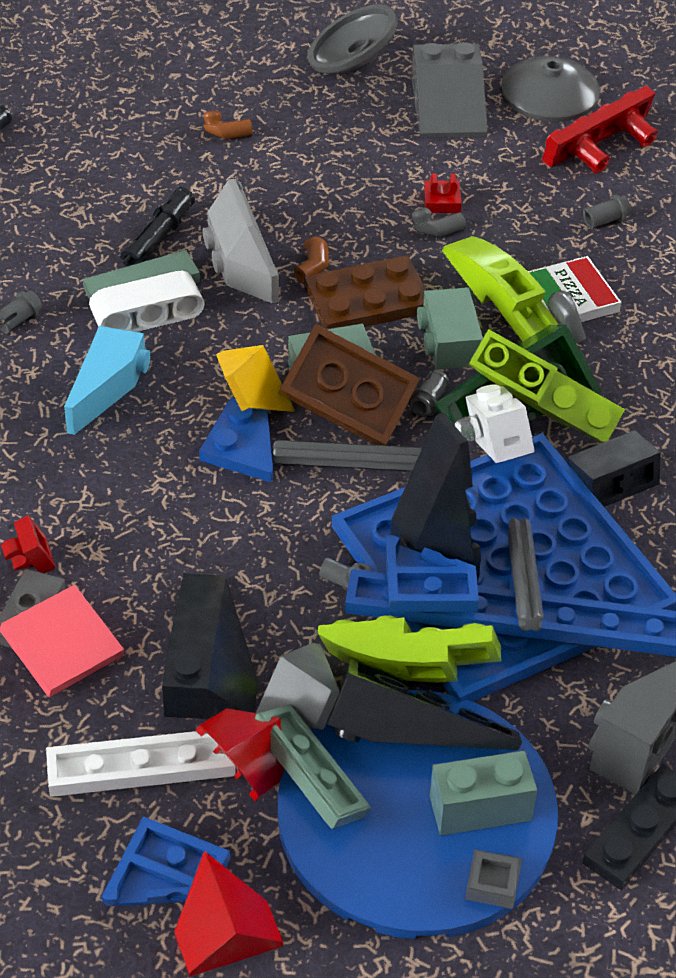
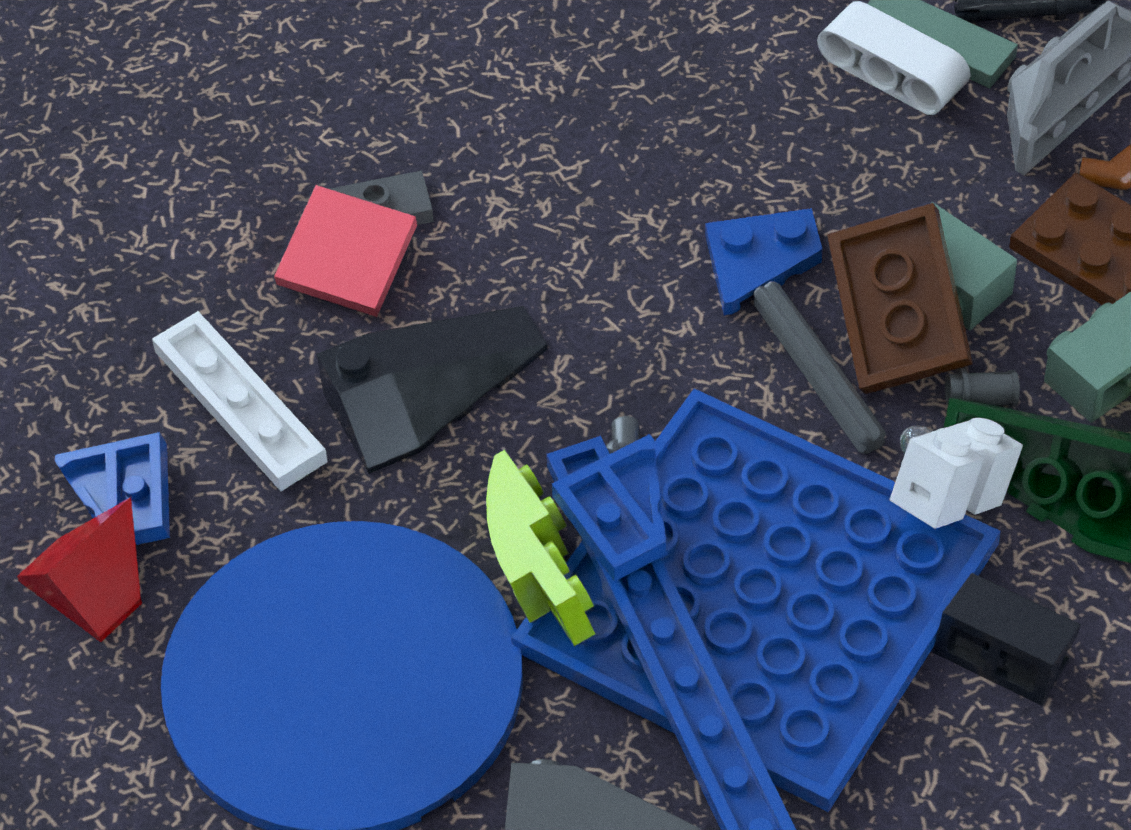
camera: 65 degrees right, 5 degrees up
(29, 547) = (452, 157): red tile -> none
(105, 375) = (745, 82): medium azure slope -> none
(247, 746) = (285, 468): red slope -> none
(253, 379) = (822, 199): yellow slope -> none
(304, 683) = (409, 474): dark grey slope -> none
(314, 769) = (308, 539): sand green tile -> none
(383, 710) = (438, 581): black wedge -> none
(435, 501) = (709, 466): black wedge -> none
(482, 792) = (370, 712): sand green brick -> none
(493, 879) = (278, 784): dark grey tile -> none
(525, 575) = (710, 602): dark grey axle -> none
(545, 388) = (1064, 488): lime slope -> none

